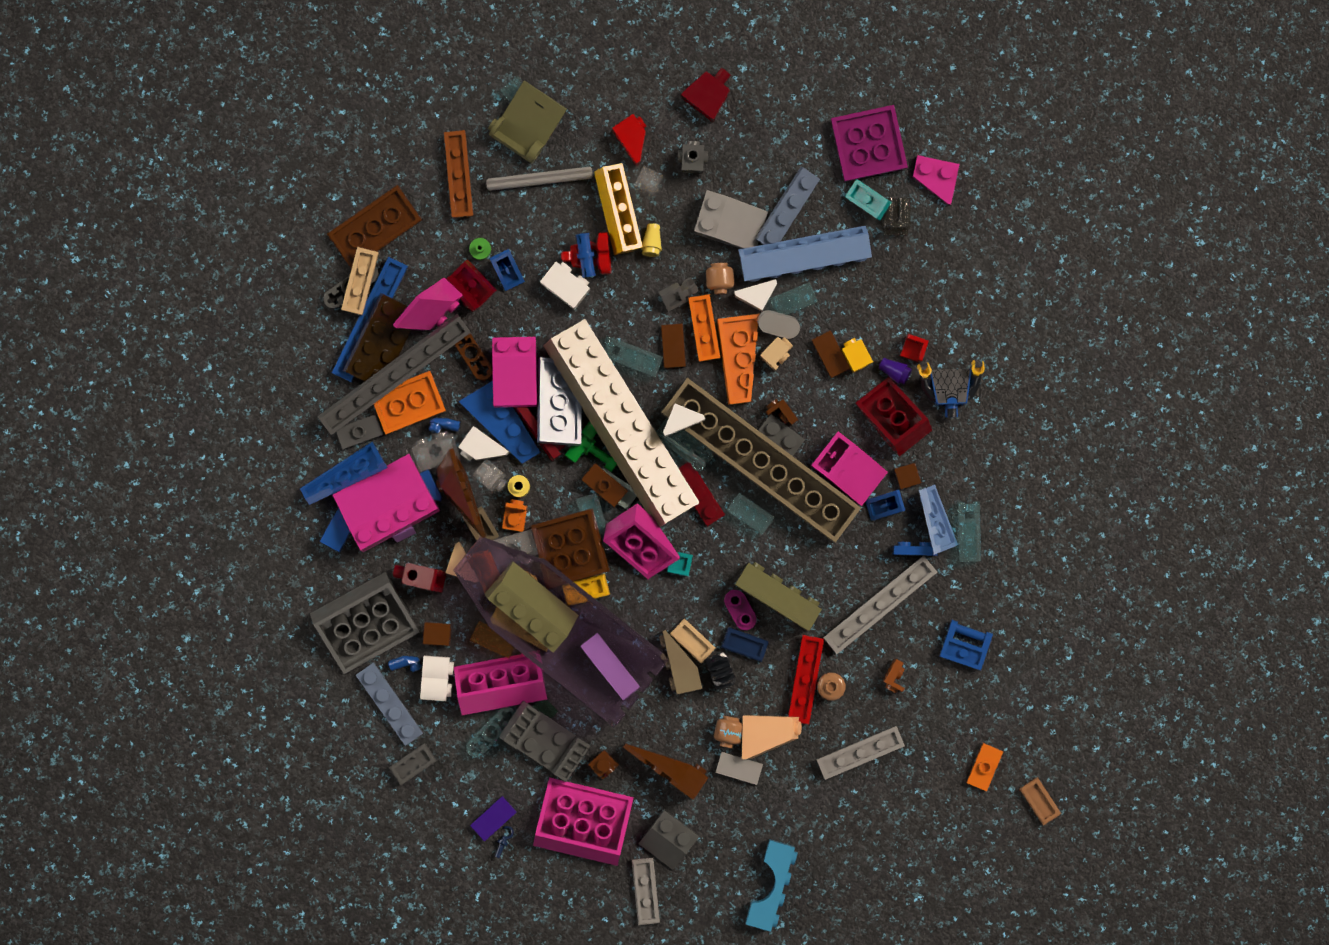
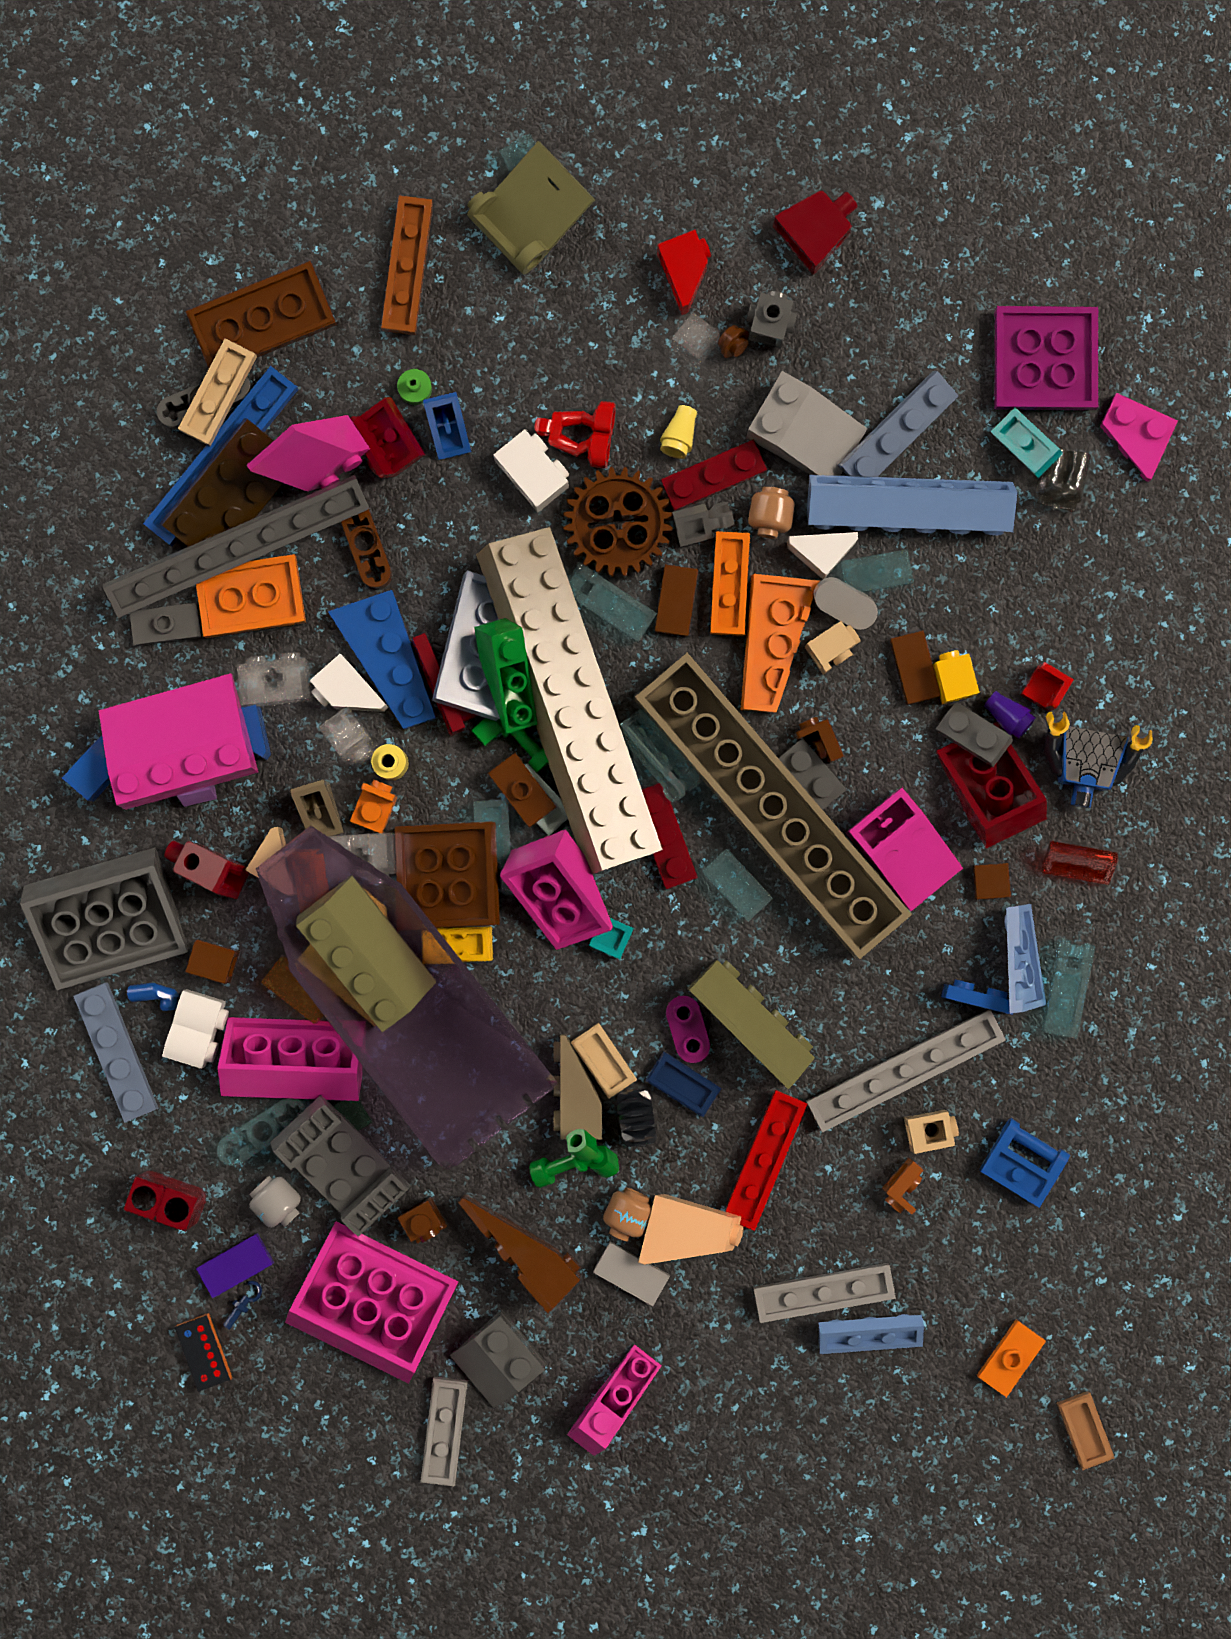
camera: 15 degrees right, 0 degrees up
(346, 473) = (134, 681): blue wing -> none
(412, 764) = (129, 1153): dark grey plate -> none
(441, 785) = (175, 1188): none -> dark red piece
(445, 423) = (298, 640): blue arm -> none
(457, 488) = (293, 738): reddish brown wedge -> none
(486, 876) = (203, 1352): none -> black tile
(509, 773) = (275, 1202): none -> light grey head
(514, 371) = (423, 584): dark pink slope -> none
(539, 178) = (529, 300): light grey axle -> none
(579, 415) = (507, 672): none -> green slope
(585, 255) = (573, 429): blue pin -> none
(610, 666) = (466, 1073): medium lavender slope -> none
(618, 209) = (639, 370): yellow brick -> none
(619, 287) = (622, 552): none -> reddish brown gear
(672, 176) = (733, 341): none -> reddish brown plate
(679, 262) = (713, 475): none -> dark red plate
(680, 419) = (662, 714): white slope -> none
(694, 700) = (583, 1155): none -> green bar
(746, 848) = (614, 1401): none -> dark pink slope
(763, 912) = (619, 1505): dark azure arch -> none
(831, 686) = (802, 1180): medium nougat head -> none
(876, 387) = (974, 734): none -> dark grey plate
(885, 505) = (948, 918): blue slope -> none
(894, 771) = (871, 1334): none -> medium blue plate
(896, 643) = (920, 1141): none -> tan brick
(959, 452) = (1079, 862): none -> clear red plate

